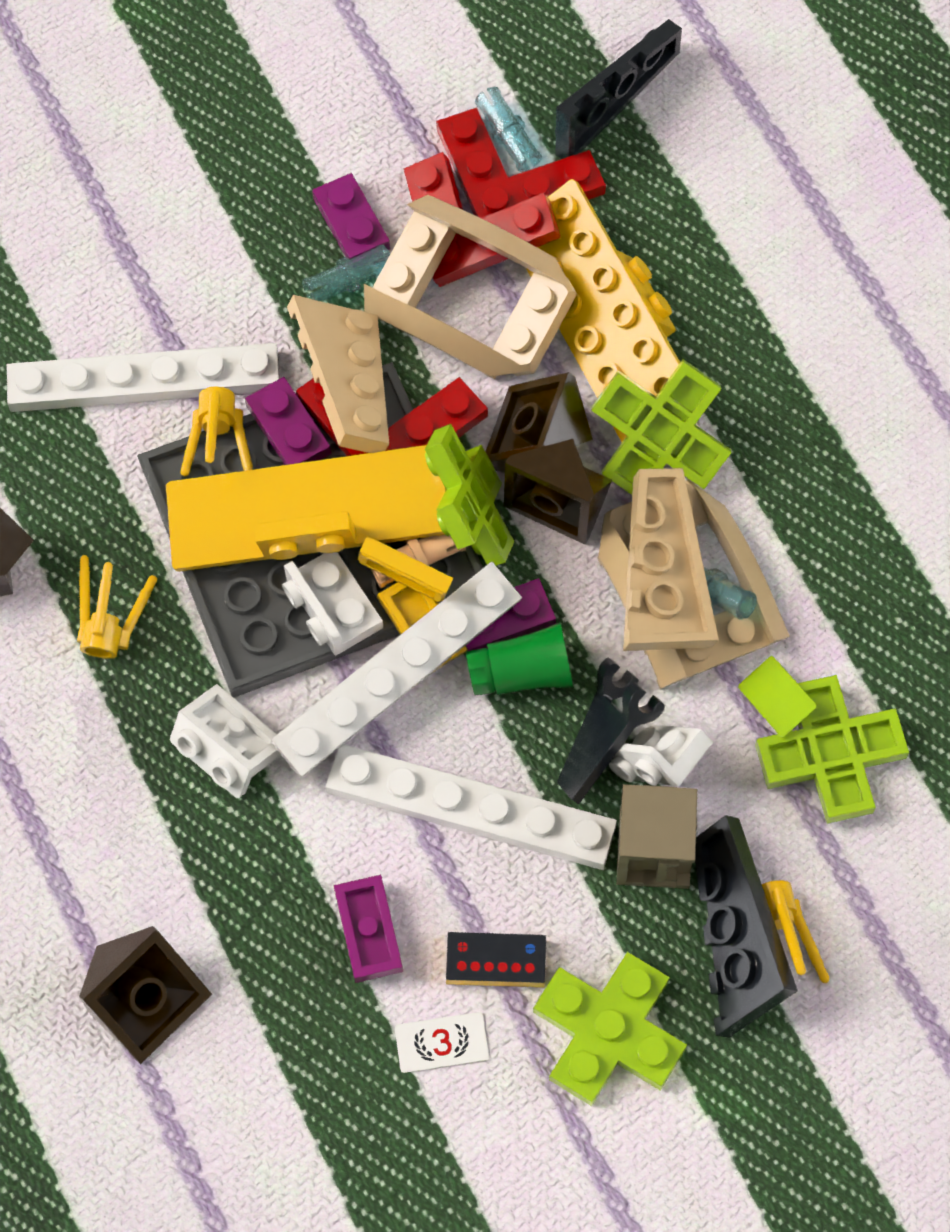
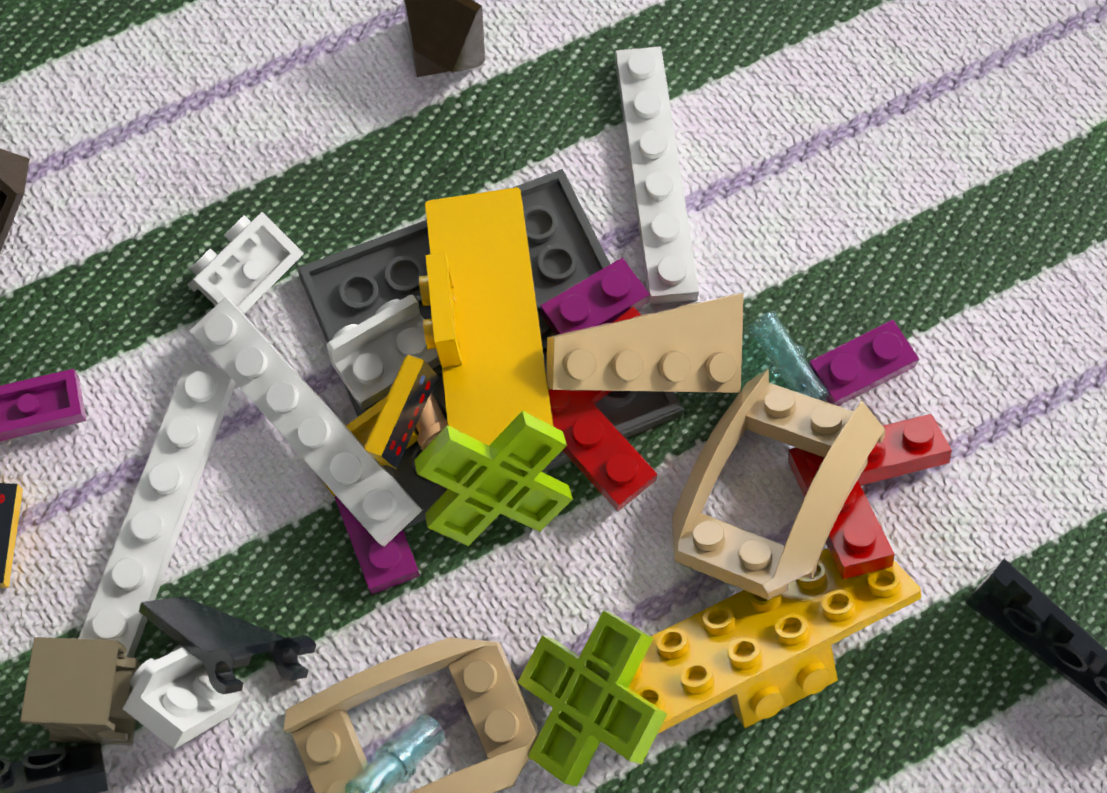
camera: 85 degrees right, 0 degrees up
(102, 633) = (365, 147): yellow plant -> none
(216, 416) = (602, 230): yellow plant -> none
(485, 179) = (931, 503): red plate -> none
(508, 129) = (997, 527): clear light blue pin -> none
(521, 663) = (311, 554): green plant -> none
(538, 416) = (598, 563): dark brown slope -> none
(555, 489) = (514, 584): dark brown slope -> none
(666, 575) = (393, 700): tan wing -> none

